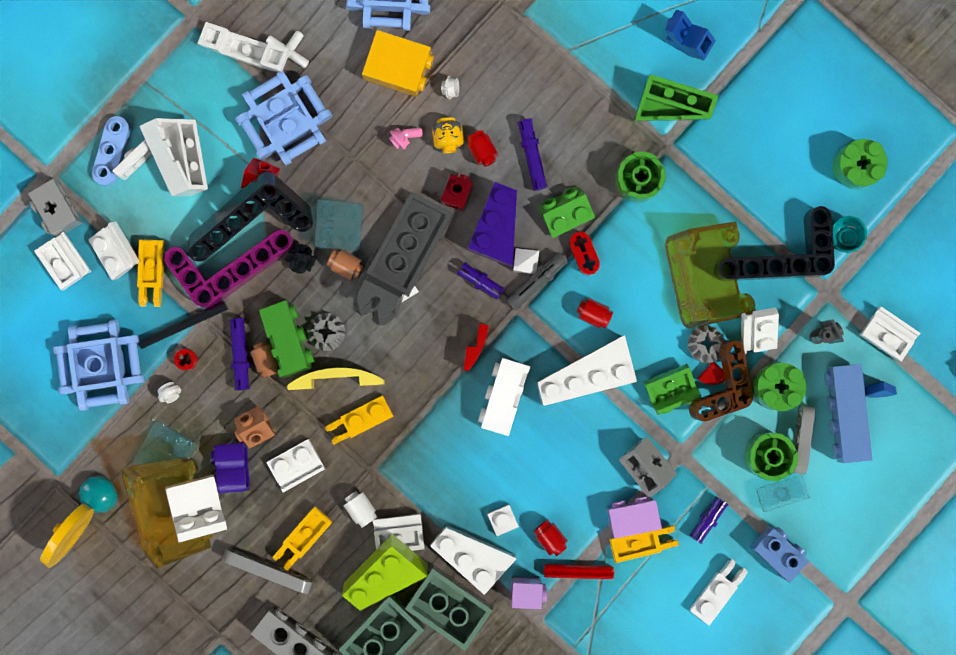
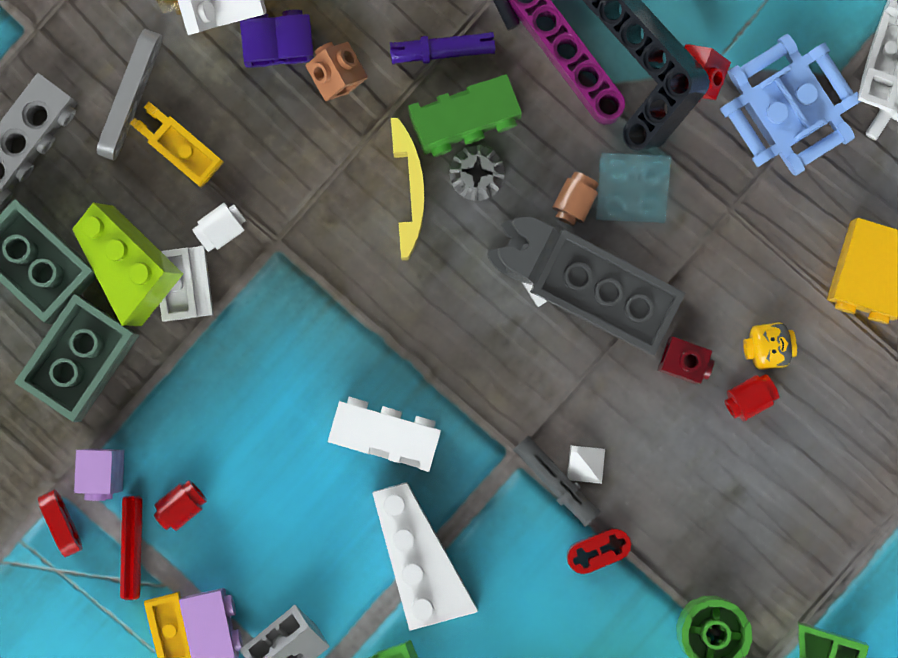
camera: 85 degrees right, 0 degrees up
(264, 359) = (434, 82): nougat brick -> none
(296, 465) = (282, 133): white plate -> none
(300, 258) = (583, 133): black gear -> none
(362, 419) = (350, 227): yellow hinge -> none
(399, 137) = (764, 275): bright pink plate -> none
(450, 87) = (841, 349): white plate -> none
(473, 353) = (448, 388): red slope -> none
(473, 558) = (149, 391): white wedge -> none
(480, 281) = (555, 398): dark purple pin -> none
(496, 226) = (635, 420): dark purple wedge -> none
(502, 520) = (205, 435): white plate -> none
(532, 154) = (754, 469): dark purple pin -> none
(561, 620) = (60, 523): none -> red beam
(566, 211) = (660, 523): bright green bracket -> none
(594, 313) = (510, 567): red brick -> none

